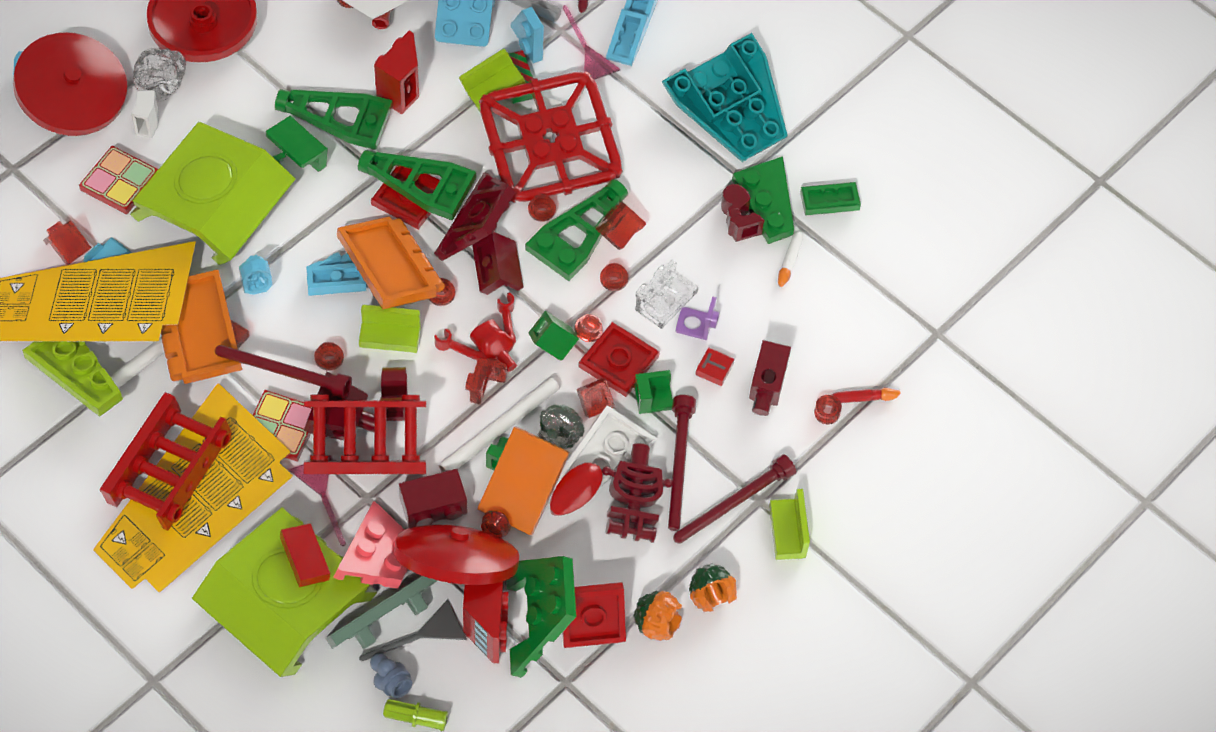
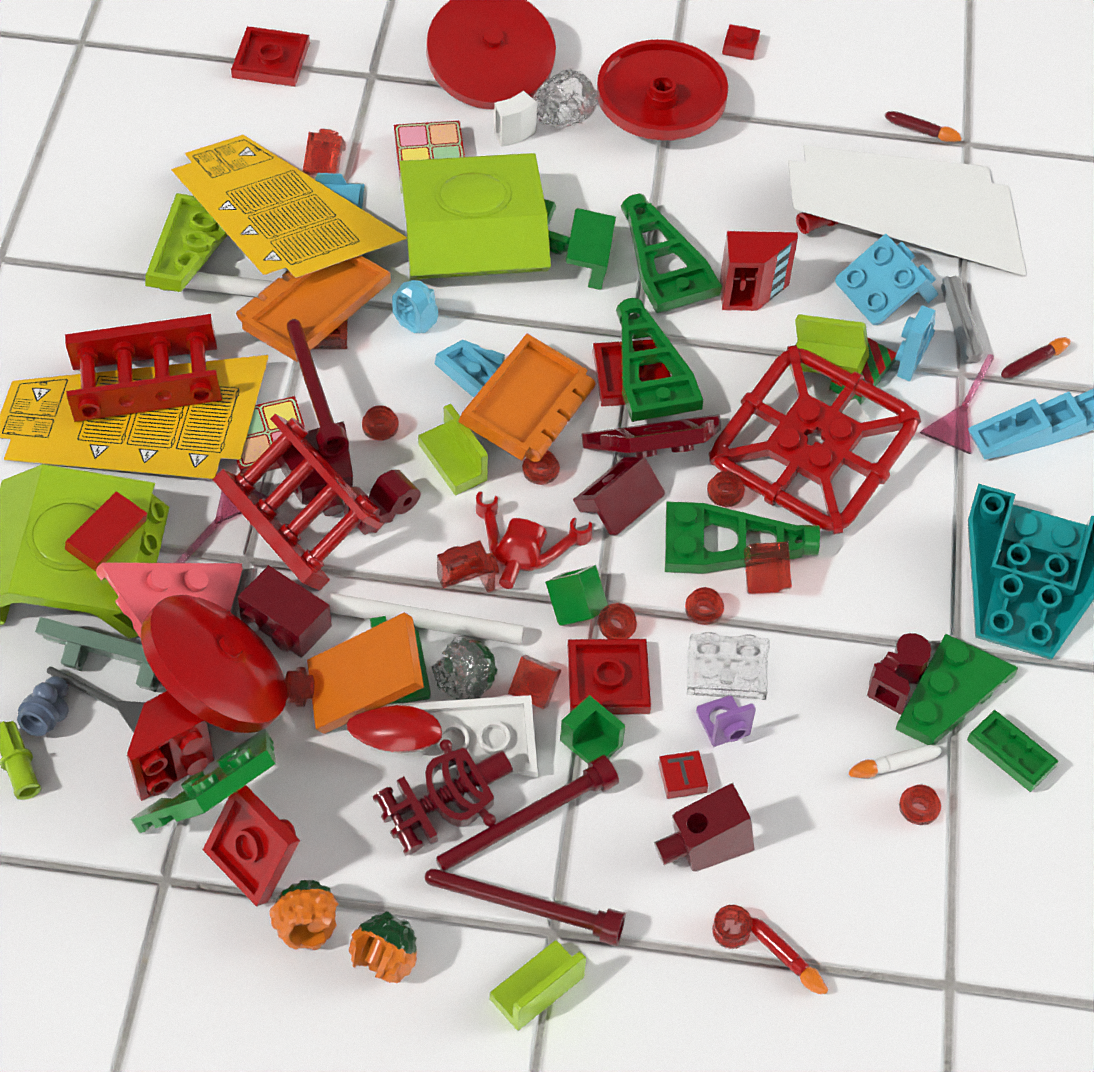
camera: 55 degrees right, 5 degrees down
(826, 260) = (923, 795): none -> clear red plate

